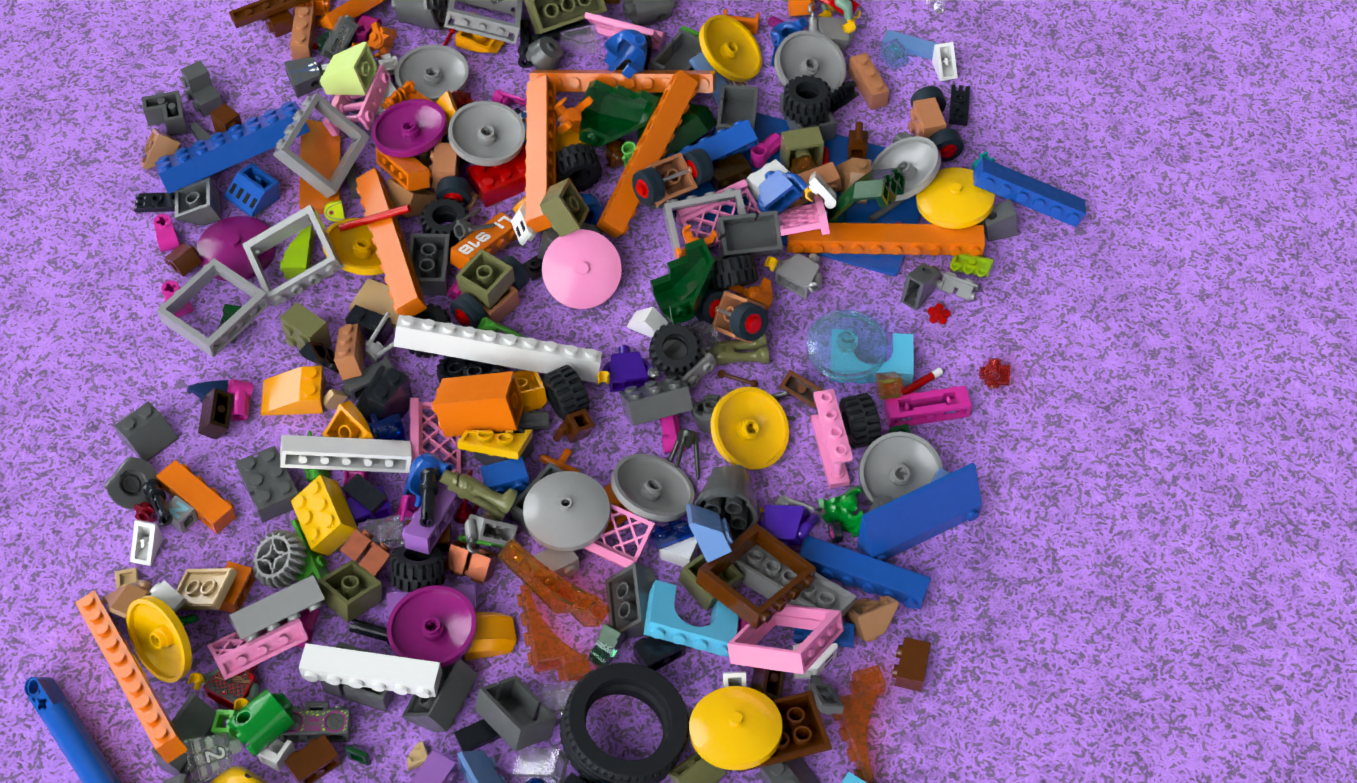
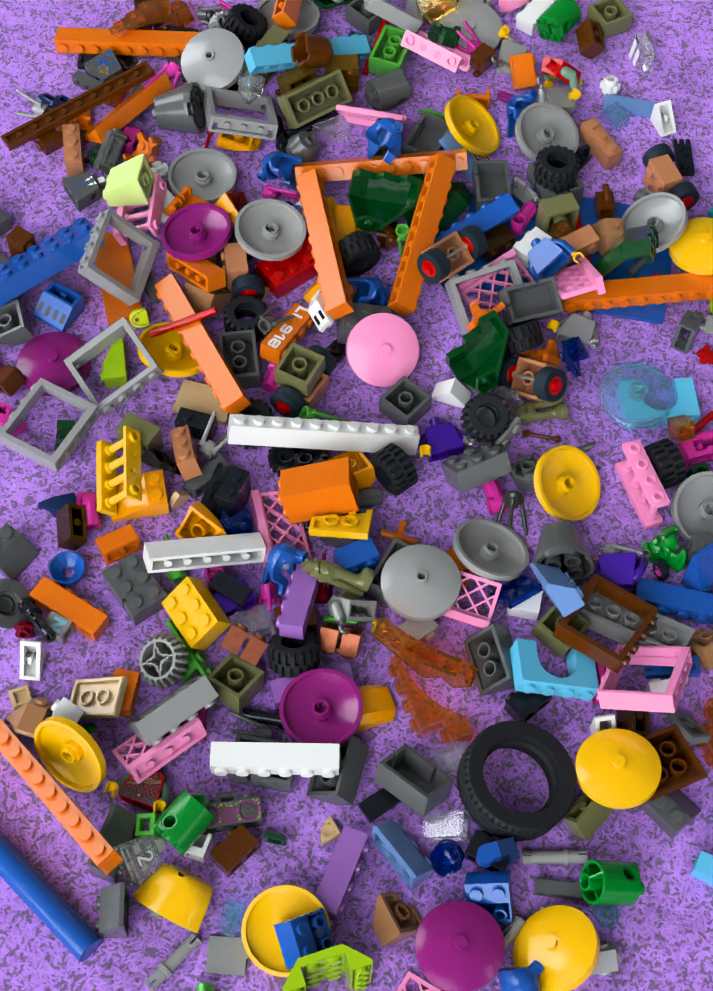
camera: 10 degrees left, 5 degrees up
(202, 448) = (64, 561): none -> blue piece
(260, 436) = (118, 544): none -> orange hinge
(264, 361) = (106, 471): none -> yellow fence
(369, 644) = (262, 732): none -> dark grey plant
(428, 491) = (292, 579): black pin -> none
(514, 70) = (278, 165): none -> blue piece
(564, 207) = (361, 294): olive brick -> none
(570, 118) = (343, 207): orange piece -> none
(575, 427) = (407, 500): reddish brown brick -> none
(595, 326) = (405, 402): none -> dark grey brick
(606, 645) = (480, 704): leg -> none
(771, 121) = (523, 192): none -> light grey hinge
(787, 296) = (572, 353): none -> clear blue bracket
(800, 388) = (605, 440): reddish brown brick -> none
(819, 186) = (586, 250): white plate -> none
(893, 21) = (610, 85): none -> white gear

